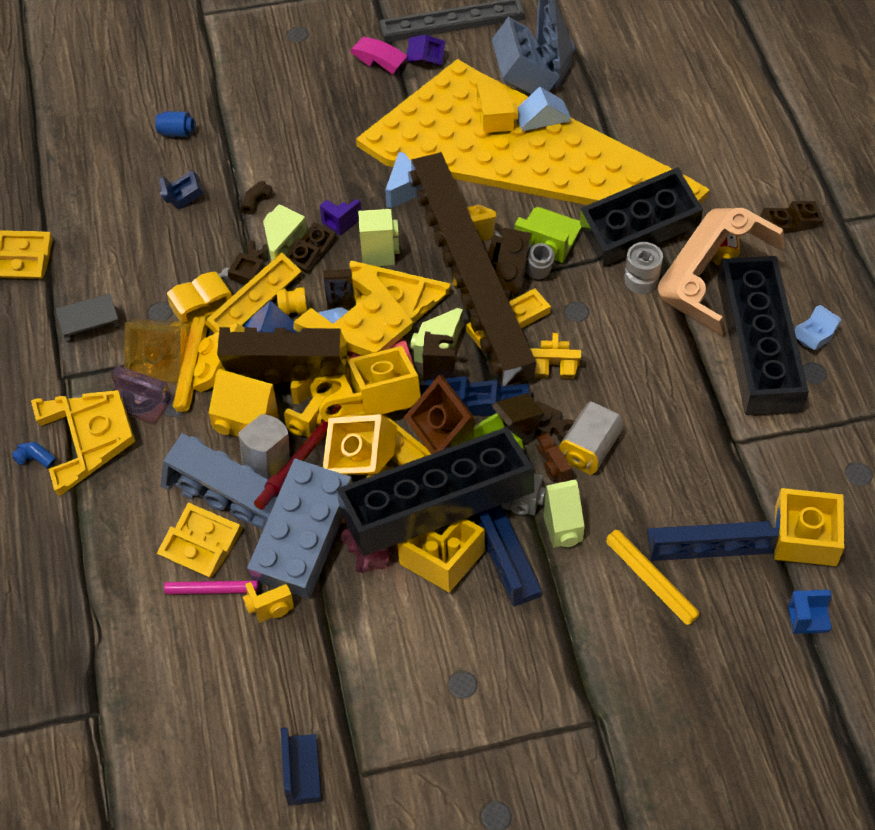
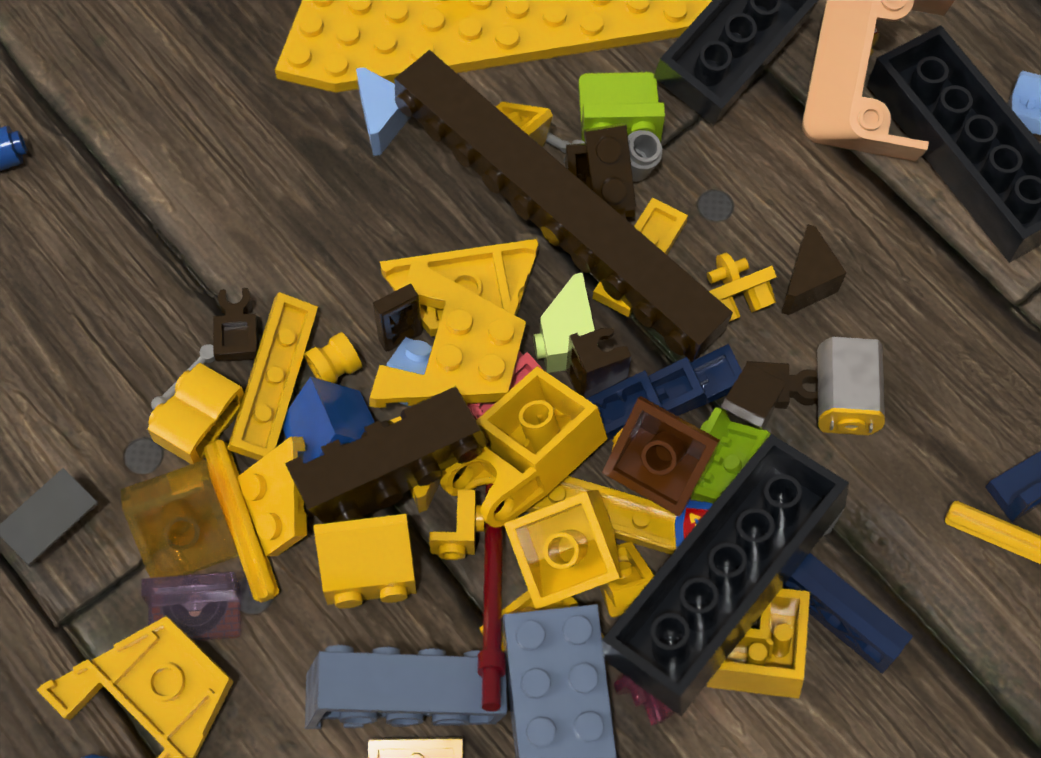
camera: 30 degrees left, 10 degrees up
(182, 190) = (67, 252): dark blue bracket -> none
(253, 194) = (175, 214): dark brown arm -> none
(265, 445) = (438, 609): flat silver piece -> none
(282, 230) = (256, 258): yellowish green slope -> none
(312, 247) = (307, 262): dark brown slope -> none
(340, 217) = (321, 197): dark purple panel -> none
(377, 237) = (403, 212): yellowish green brick -> none
(556, 463) = (825, 442): reddish brown plate -> none
(564, 514) = (887, 517): yellowish green slope -> none
(606, 369) = (815, 273): none -> dark brown slope
(643, 267) = (775, 108): light grey wheel -> none

